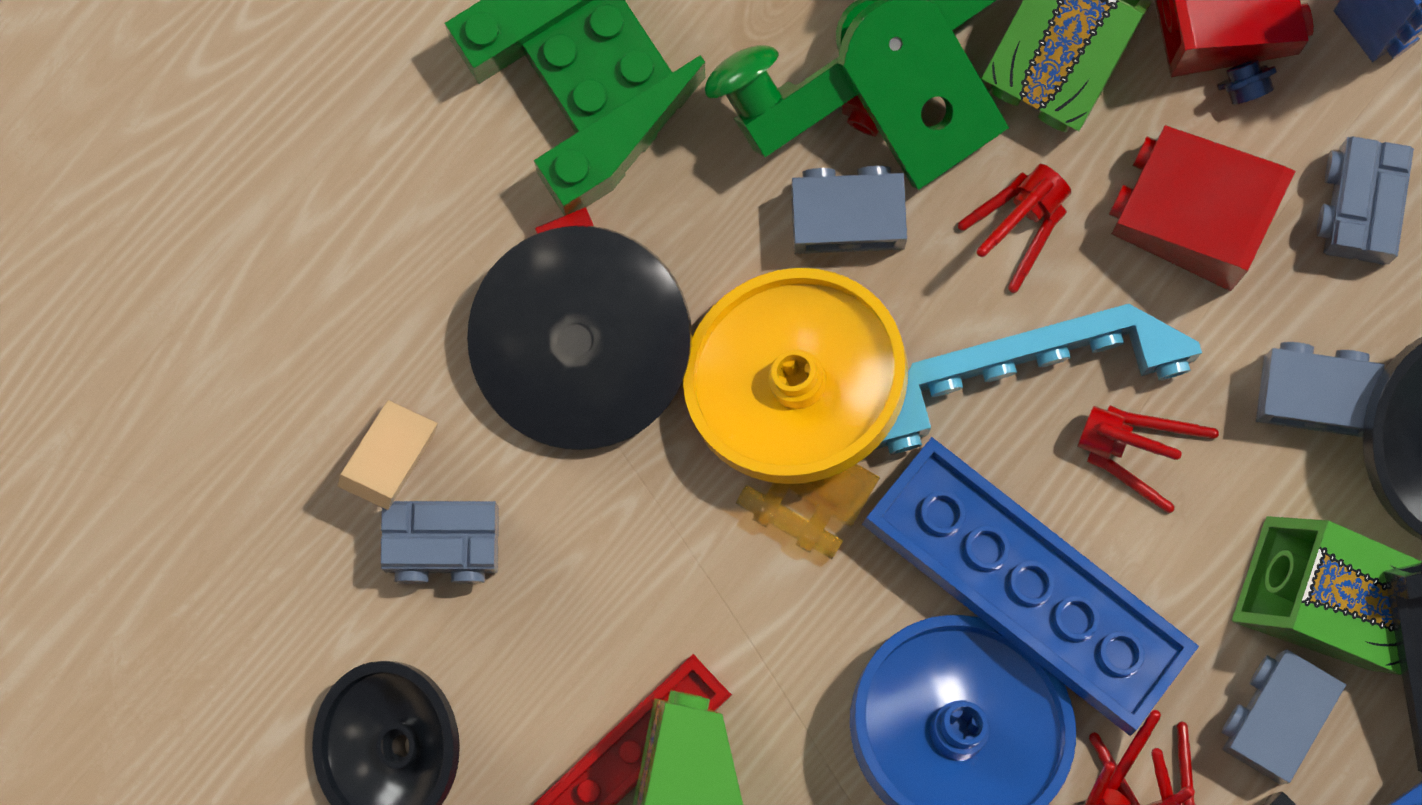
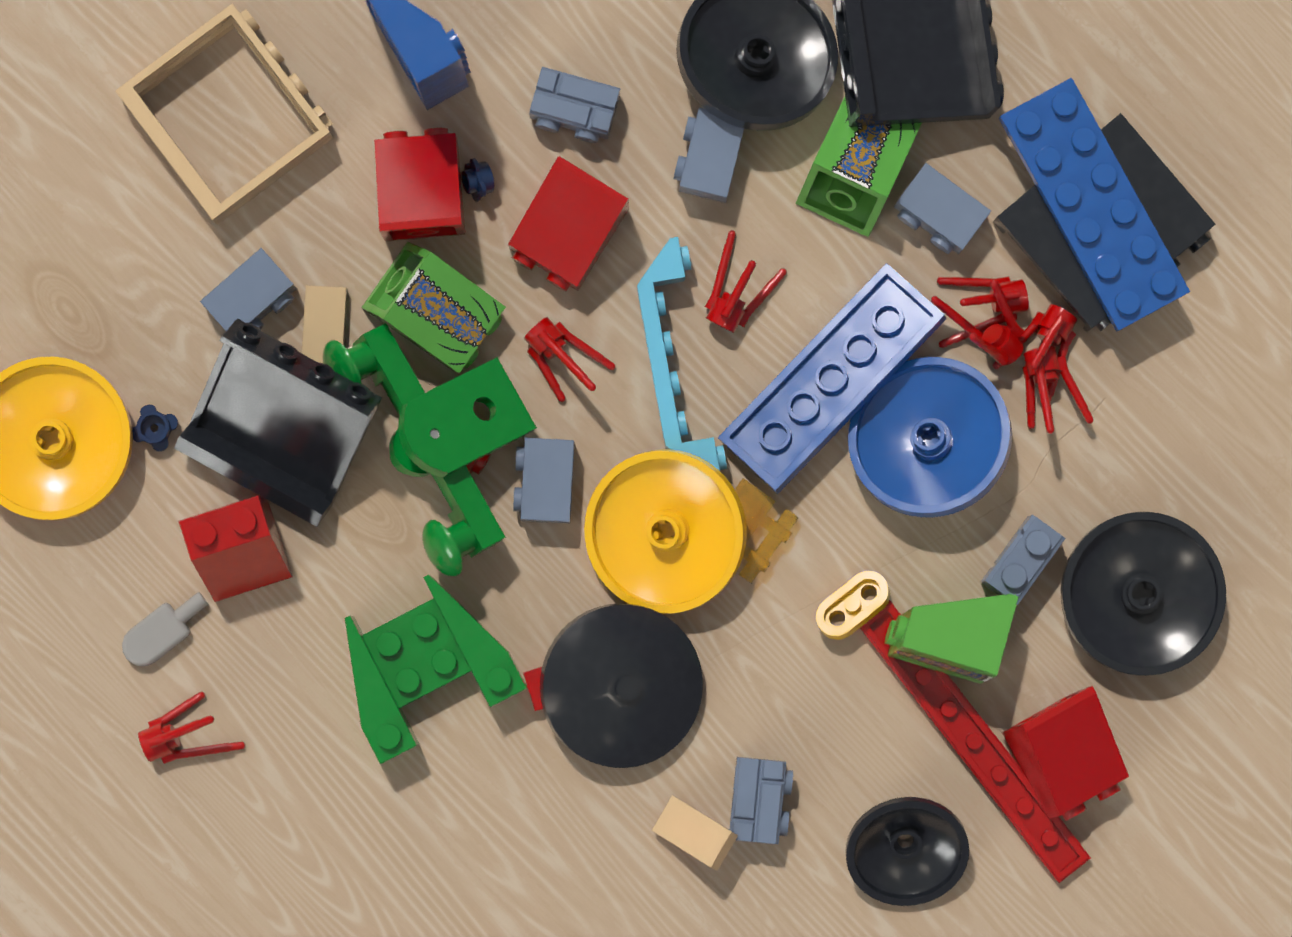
camera: 90 degrees left, 5 degrees up
(724, 640) = (849, 602): none -> plate

